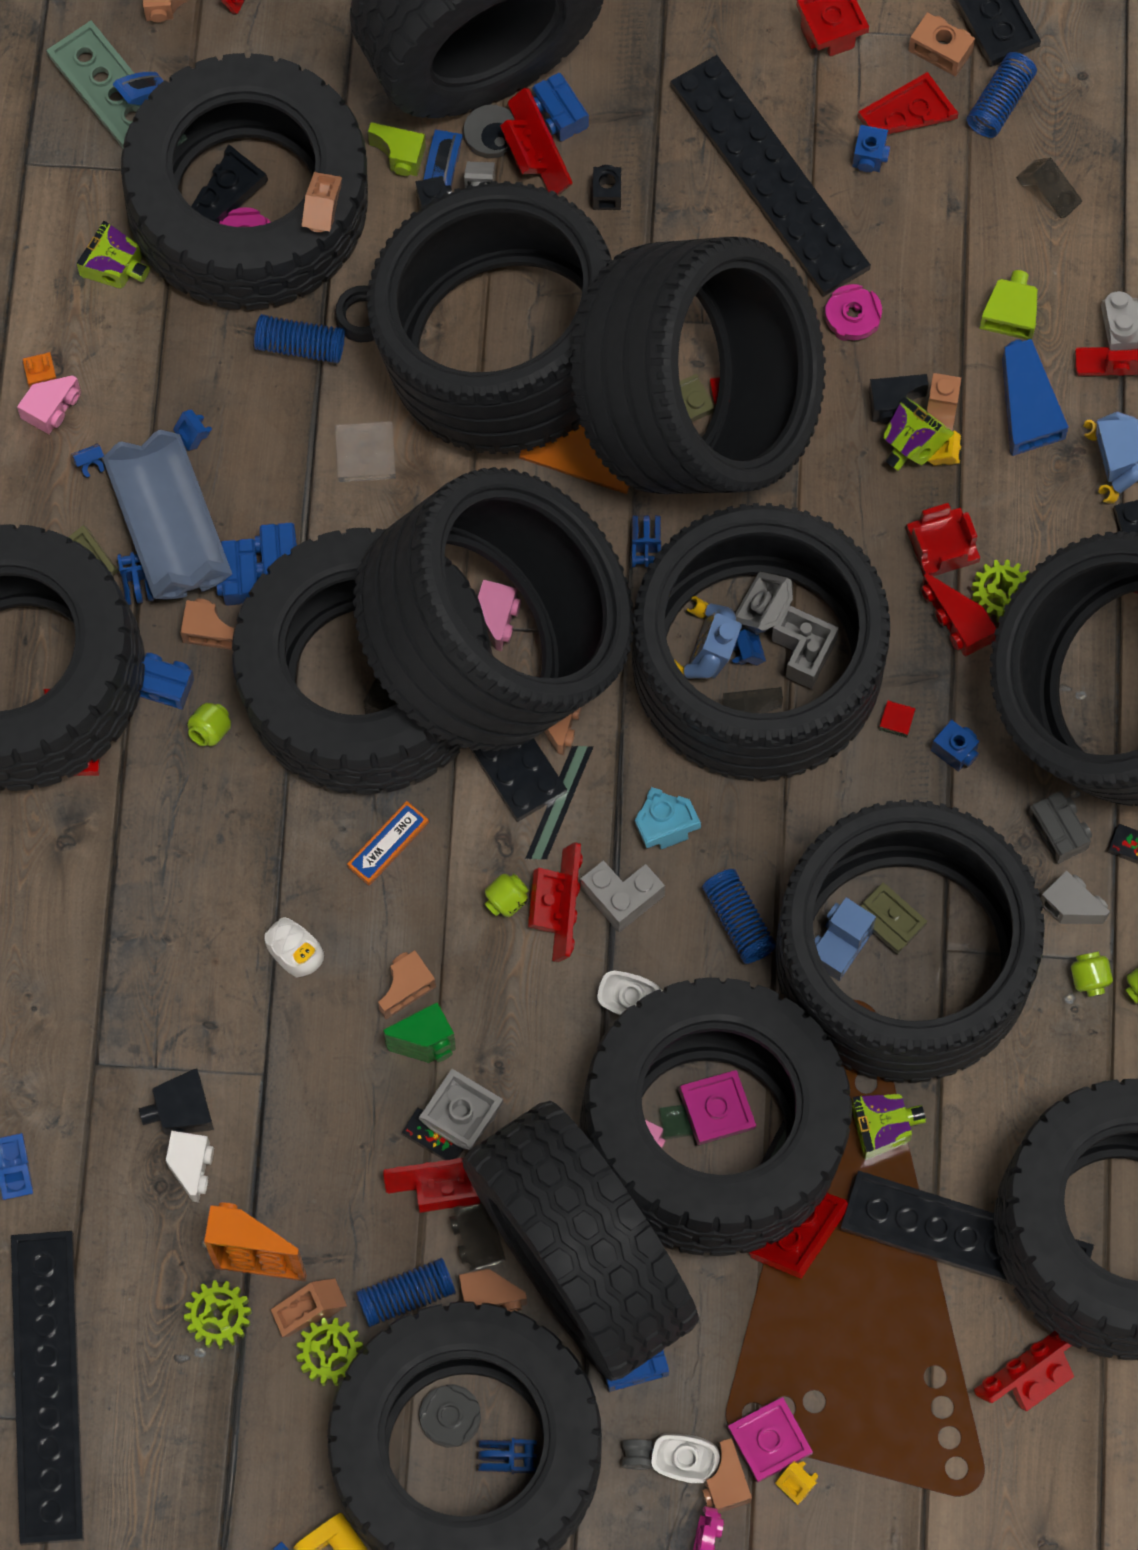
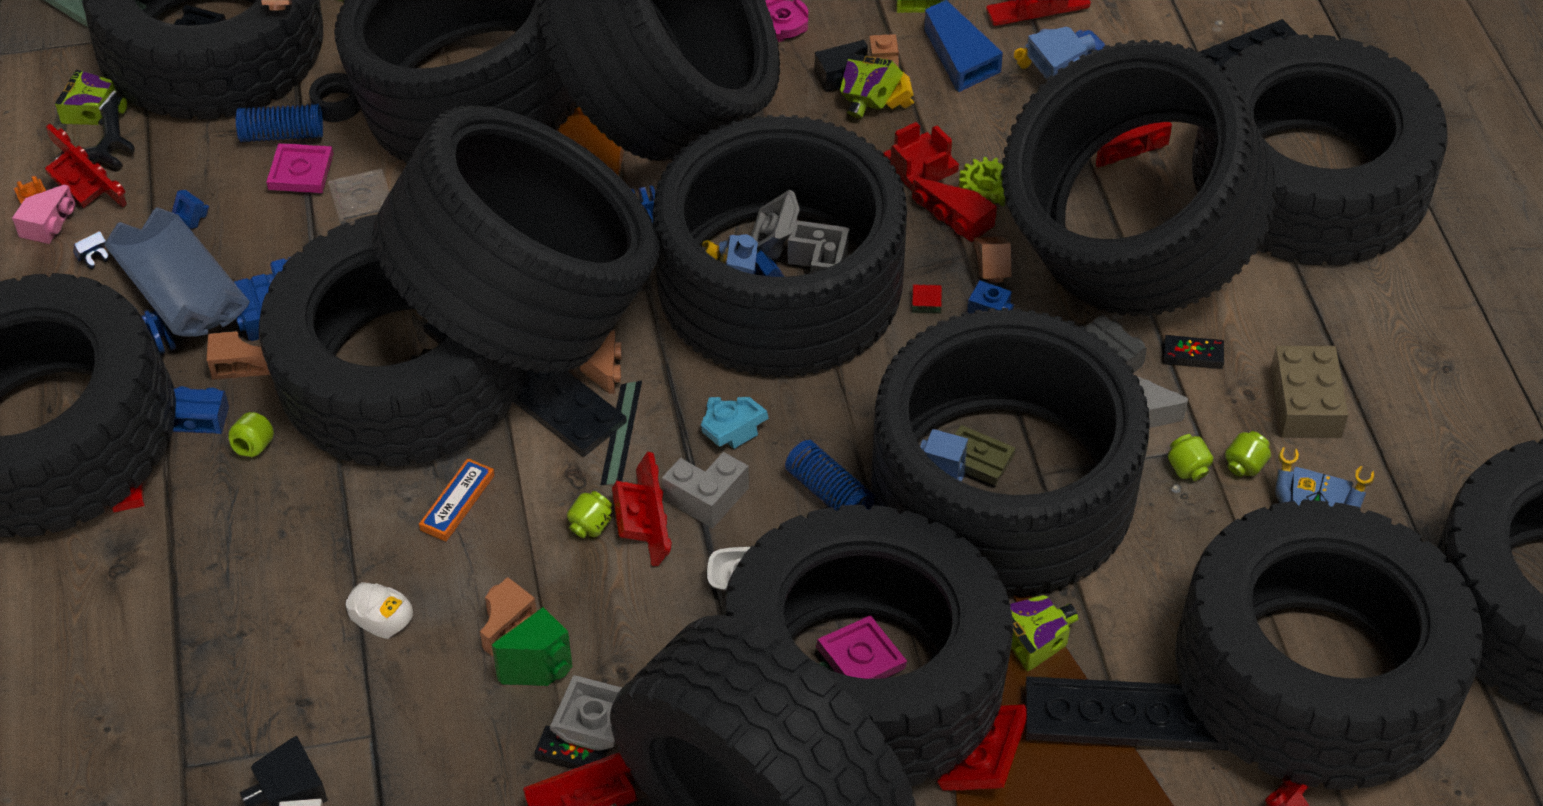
camera: 15 degrees left, 20 degrees down
(87, 362) = (79, 173): none -> red bracket
(126, 320) = (111, 132): none -> black piece
(310, 401) = (300, 168): none -> dark pink plate
(976, 688) = (993, 258): none -> nougat arch

